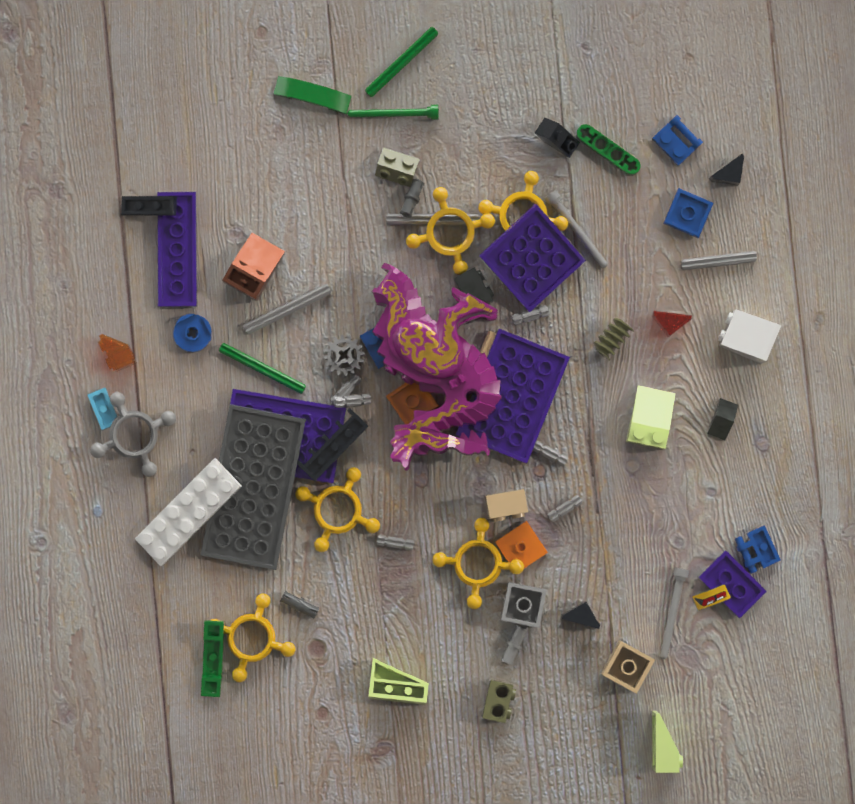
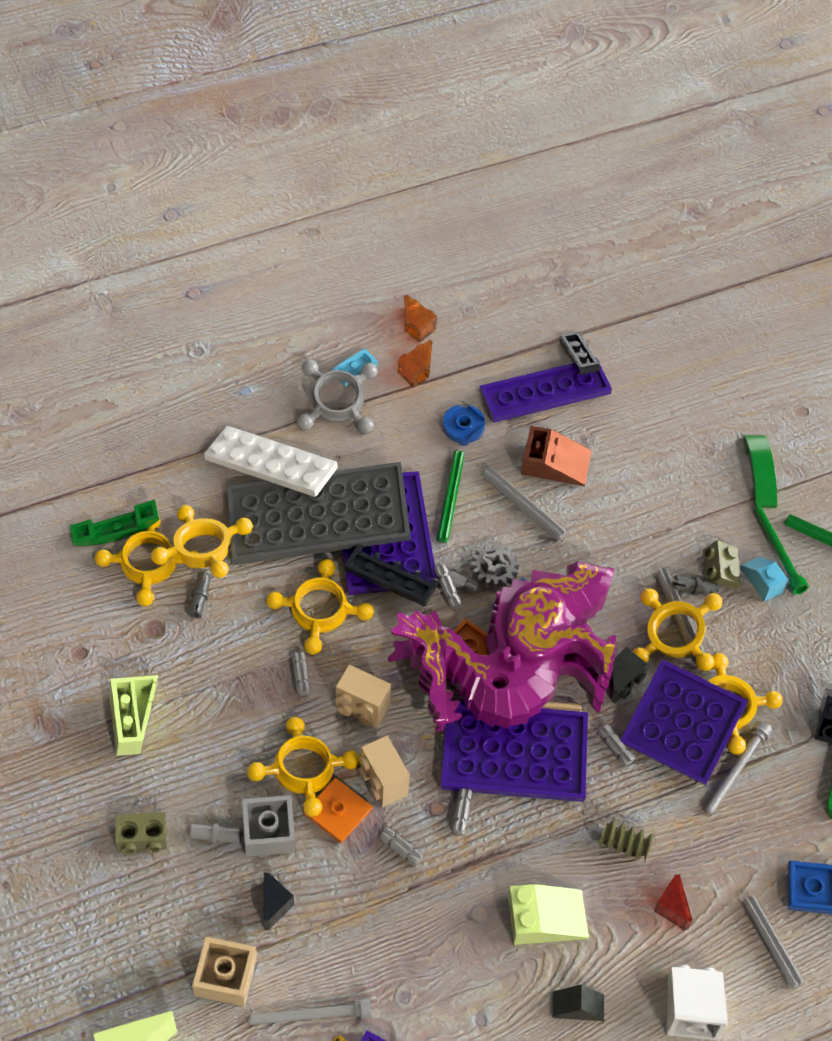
camera: 70 degrees right, 30 degrees down
(68, 337) = (418, 320): none -> clear orange slope
(220, 597) = (199, 527): none -> yellow piece
(417, 137) = (765, 577): none -> medium azure slope
(438, 501) = (363, 696): none -> tan brick

